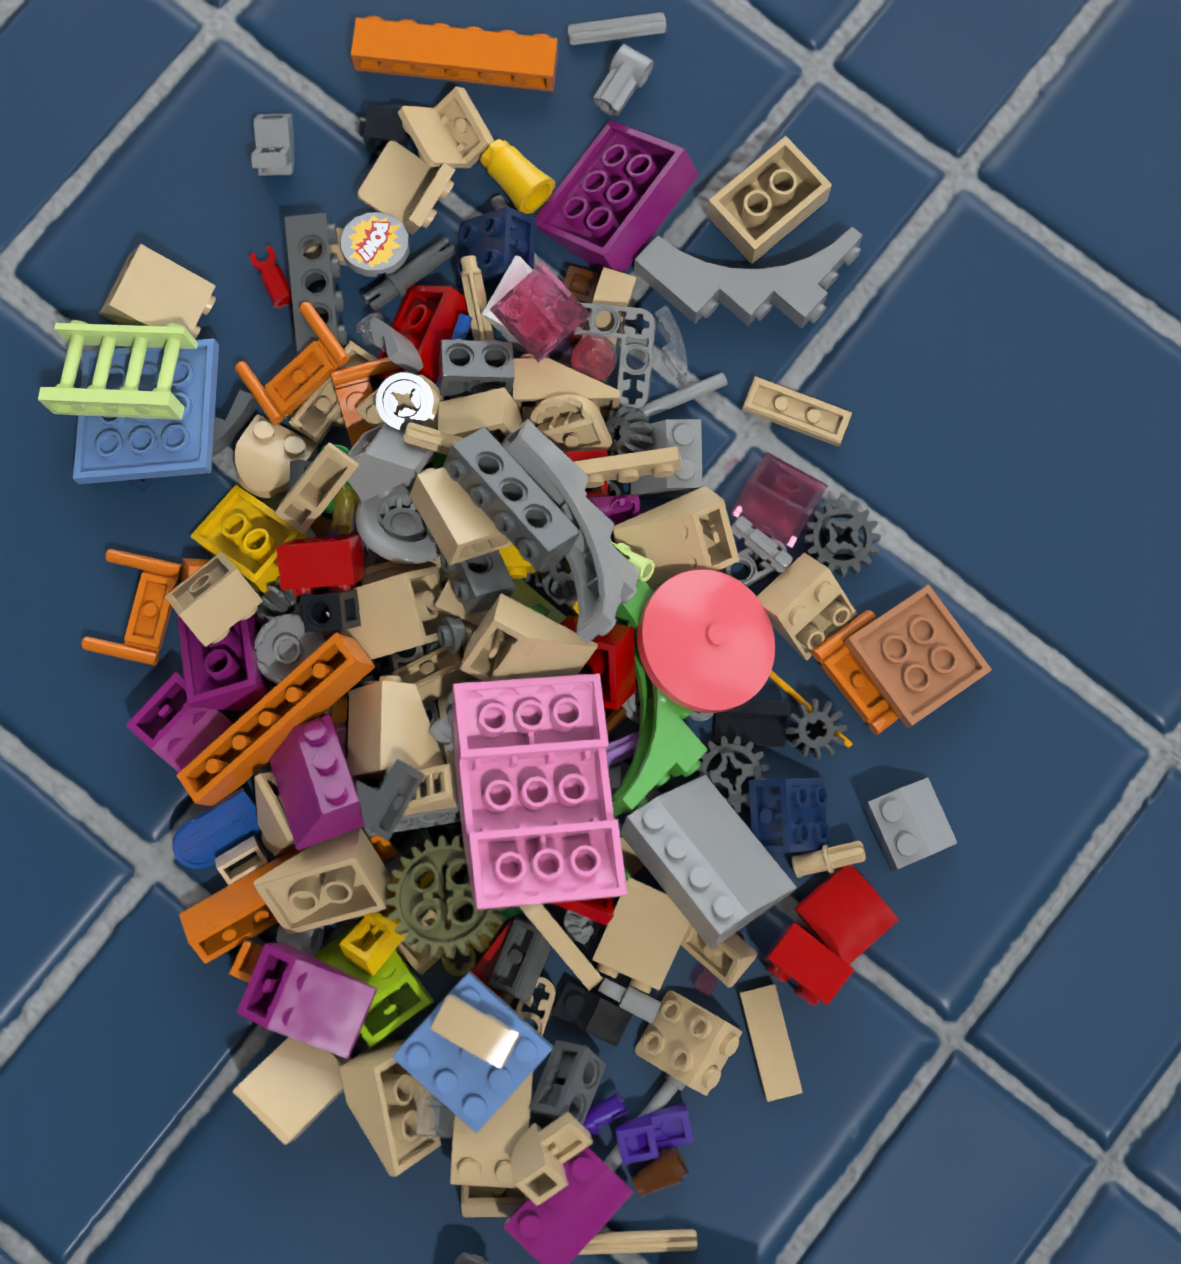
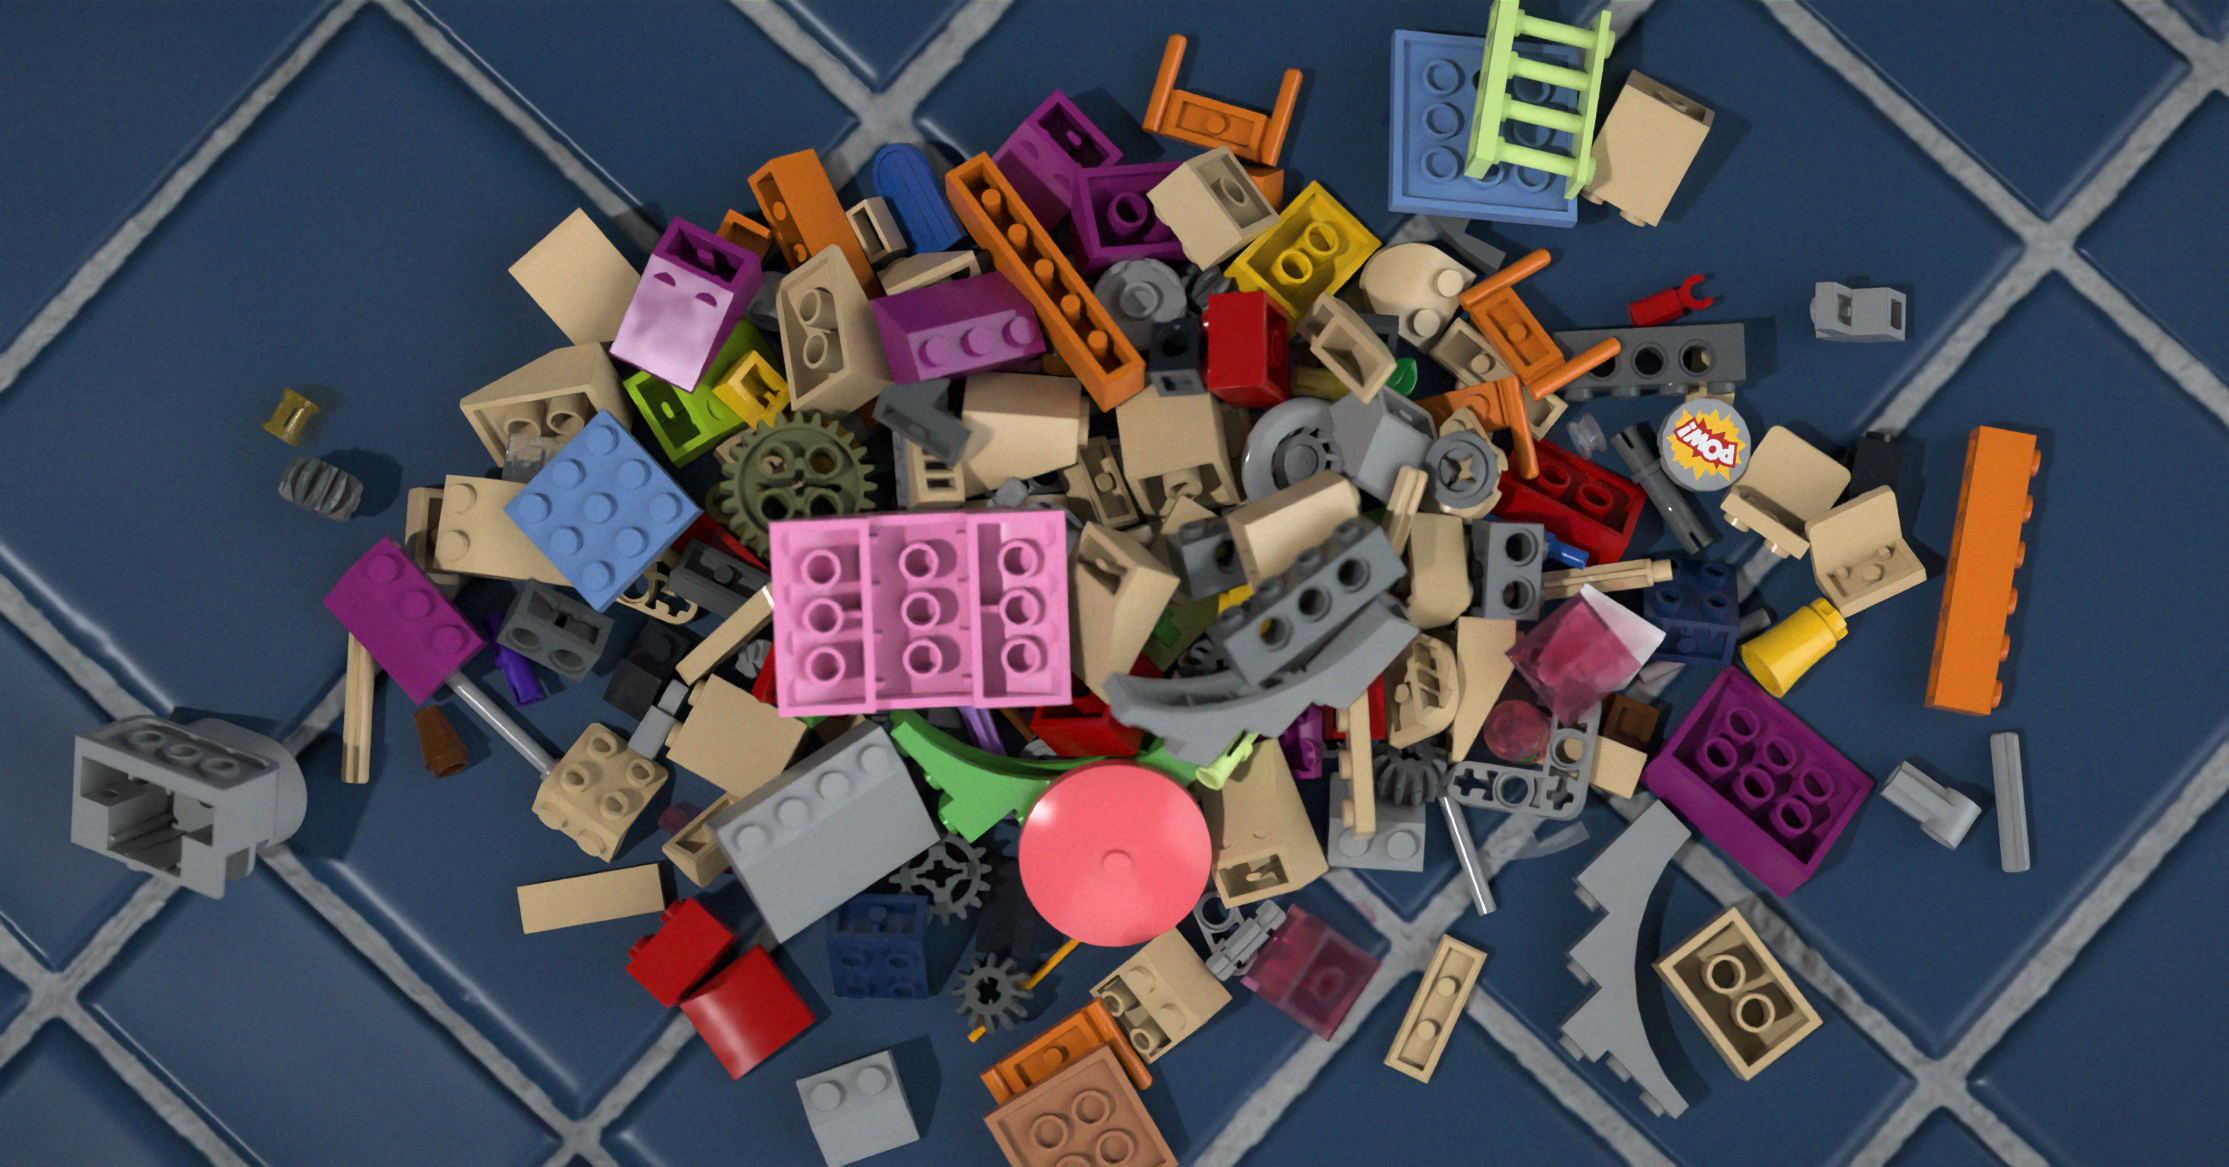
camera: 95 degrees right, 5 degrees up
(397, 347) = (1548, 468): light grey slope -> none
(452, 634) = (1140, 515): dark grey plate -> none
(475, 1031) = (621, 513): tan slope -> none
(541, 1154) = (468, 588): tan brick -> none
(654, 1131) = (488, 728): dark purple slope -> none
(828, 858) = (820, 994): tan axle -> none
(852, 547) = (1273, 1030): dark grey gear -> none

